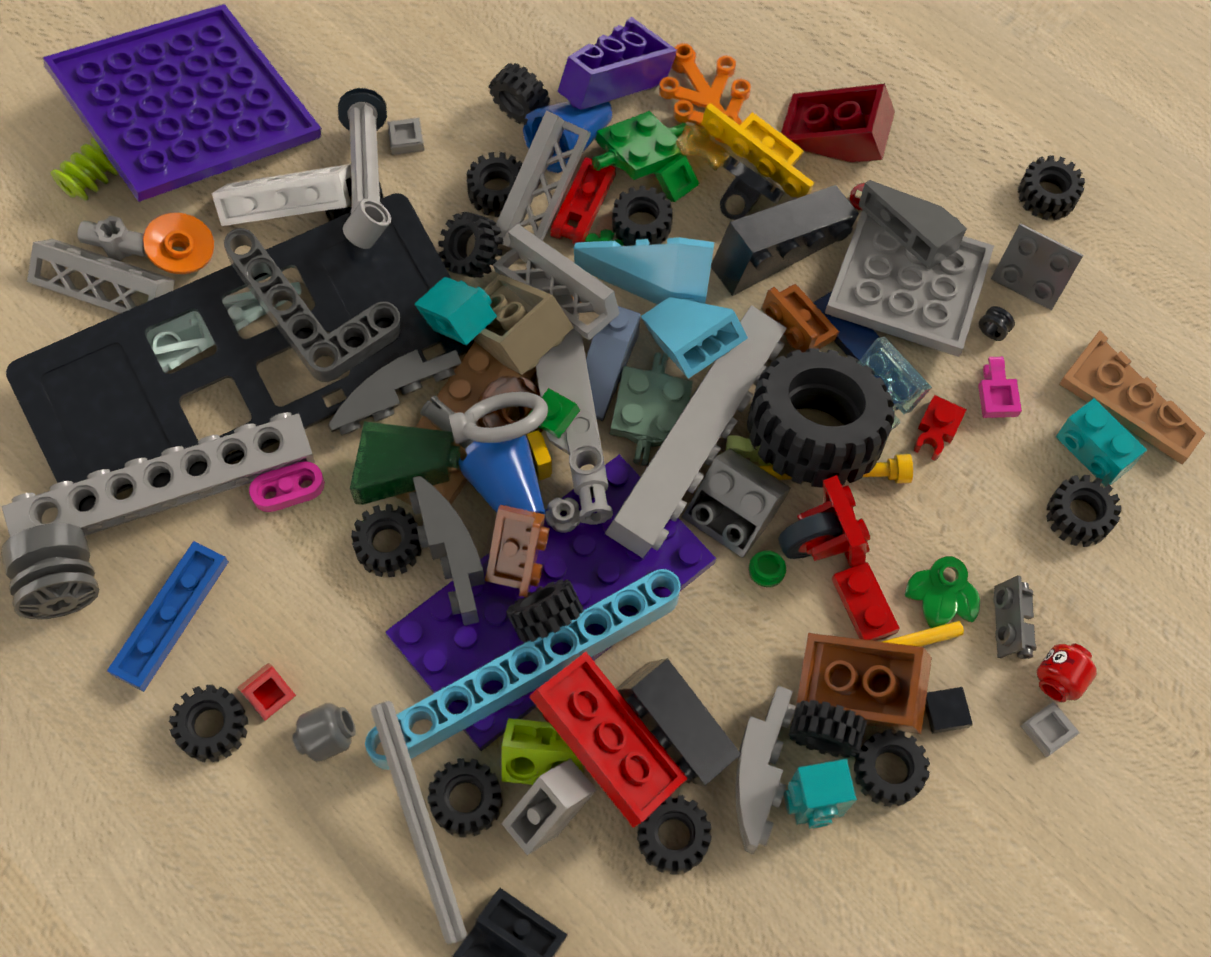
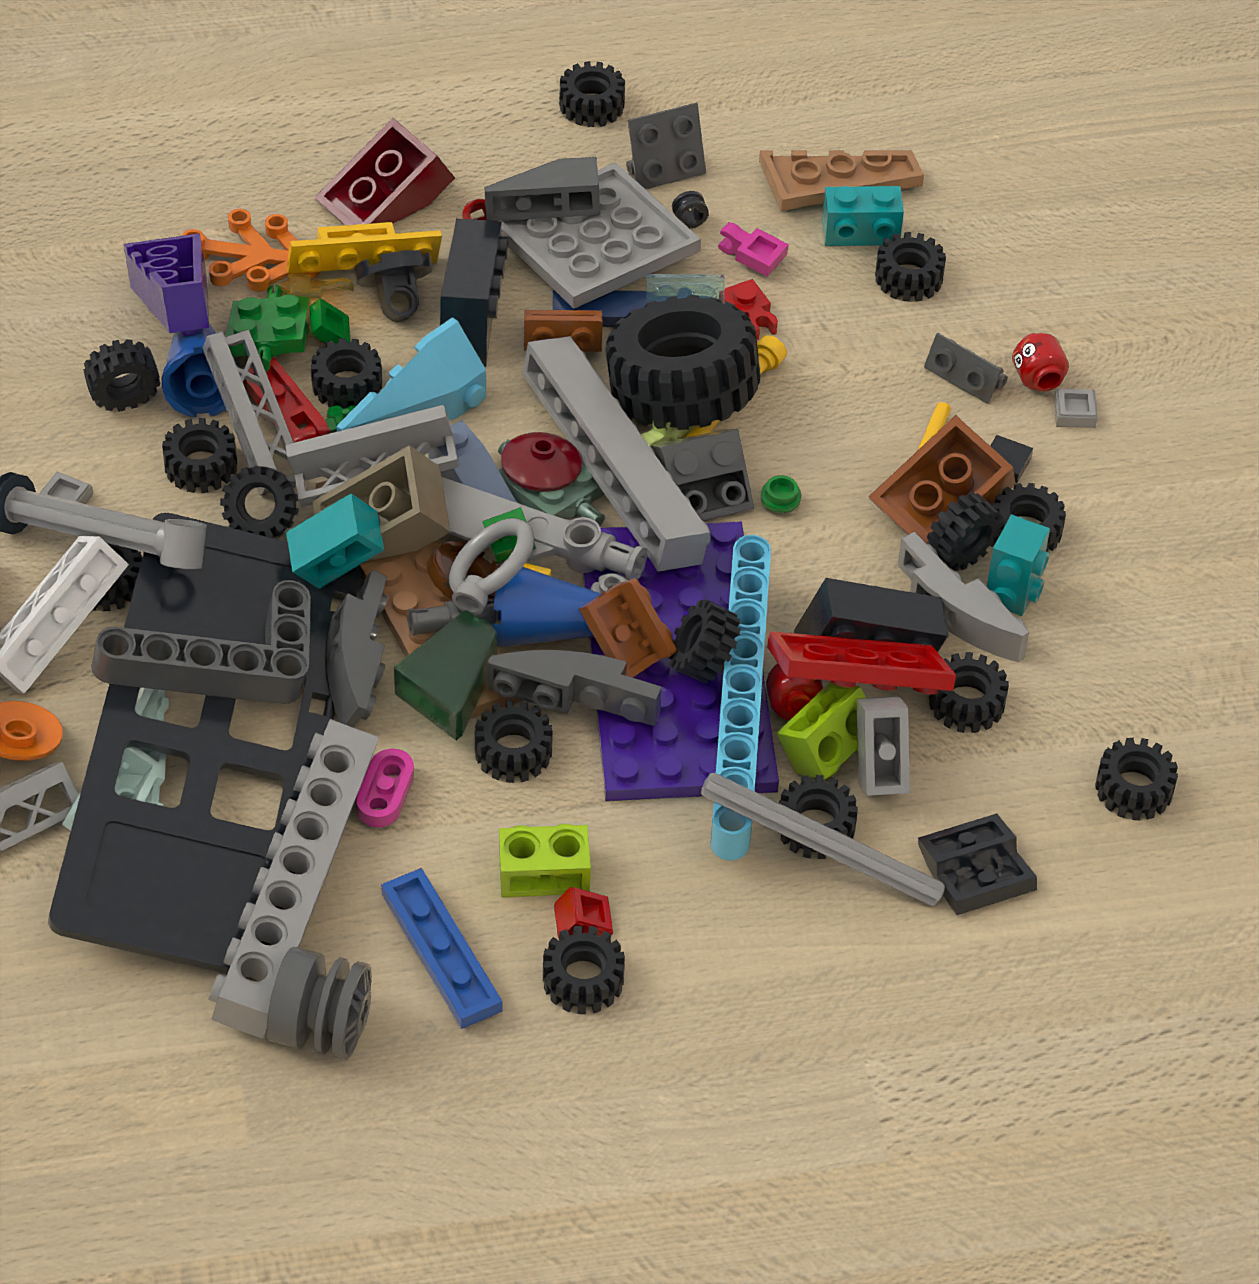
camera: 55 degrees left, 15 degrees down
(285, 634) = (544, 867): none -> lime brick
(324, 732) = (669, 883): dark grey head -> none
(652, 401) = (541, 461): none -> dark red dish
(693, 332) = (518, 396): medium azure slope -> none
(828, 528) = (791, 418): plate -> none
(865, 603) = (866, 452): red plate -> none
(941, 597) = (907, 398): green plate -> none

